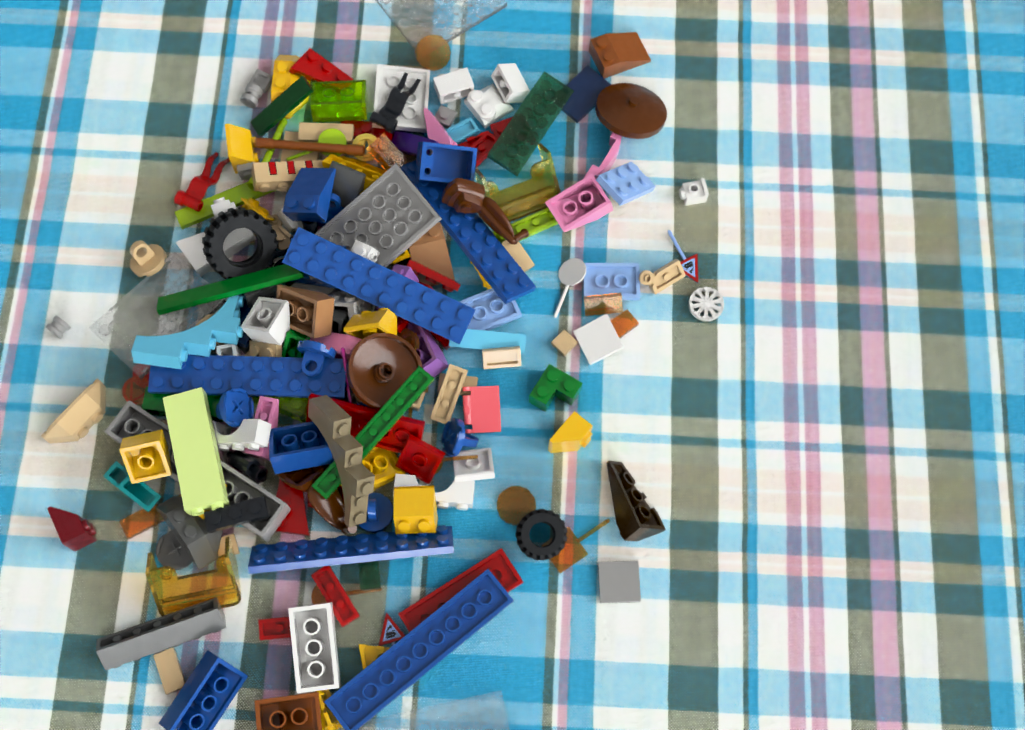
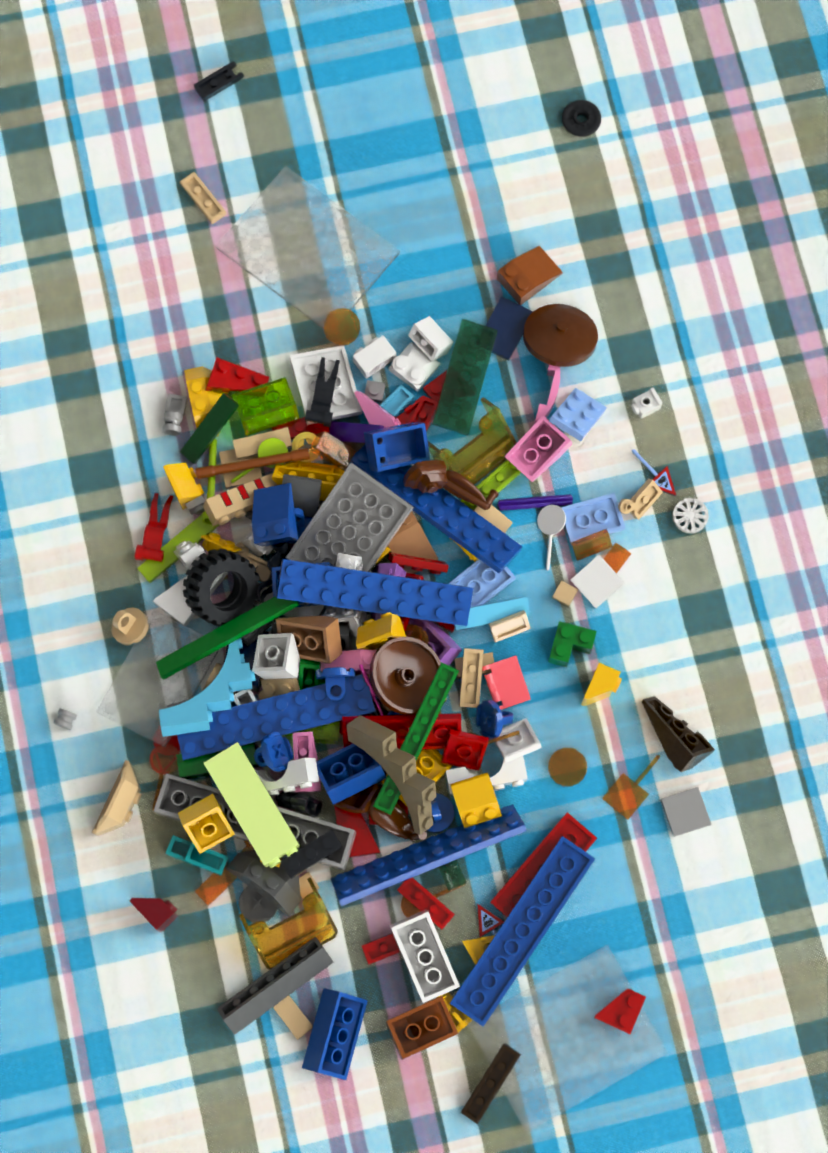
camera: 15 degrees left, 5 degrees up
(557, 526) = (617, 794): black tyre -> none
(560, 252) = (534, 502): none -> dark purple axle

